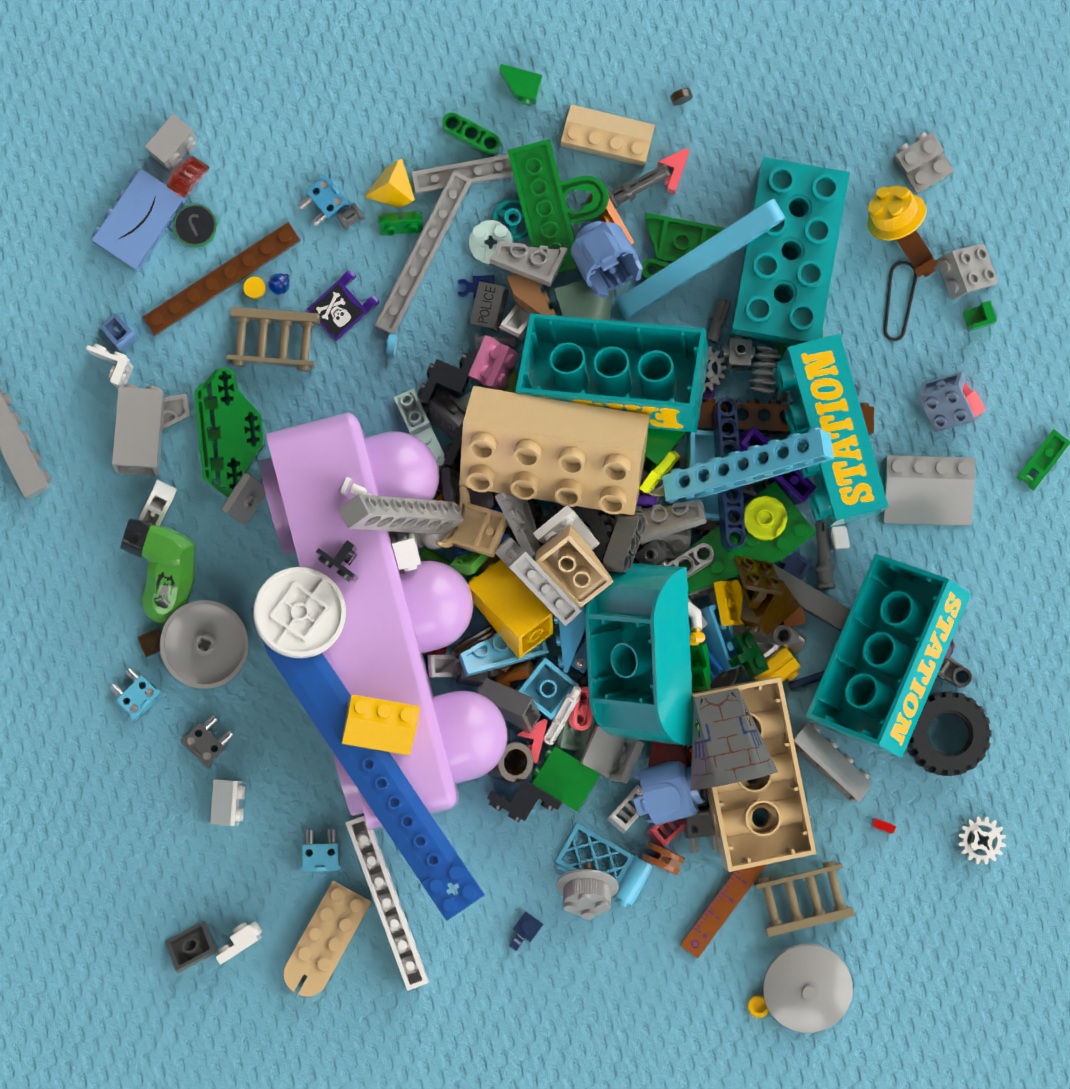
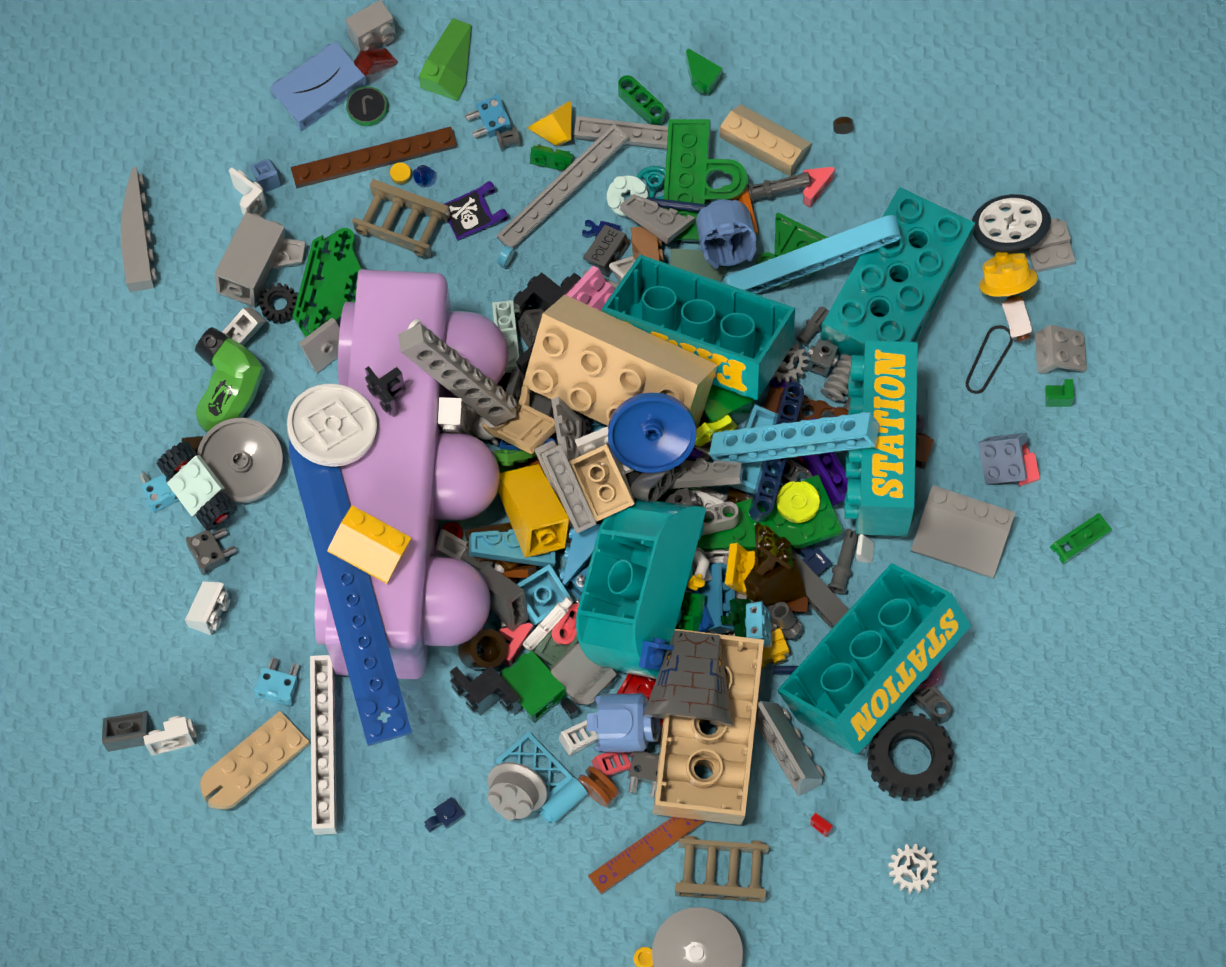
camera: 20 degrees right, 15 degrees down
(169, 463) = (272, 293): none -> black tyre
(173, 687) = (196, 485): none -> plate
(262, 154) = (448, 62): none -> bright green wedge
(547, 238) = (678, 204): none -> dark blue bar
(607, 787) = (569, 708): none -> black tile
(609, 509) = (652, 432): none -> blue dish
(681, 727) = (653, 653): none -> blue bracket
(767, 657) = (758, 622): none -> medium azure piece
(880, 126) = (1003, 243): none -> wedge

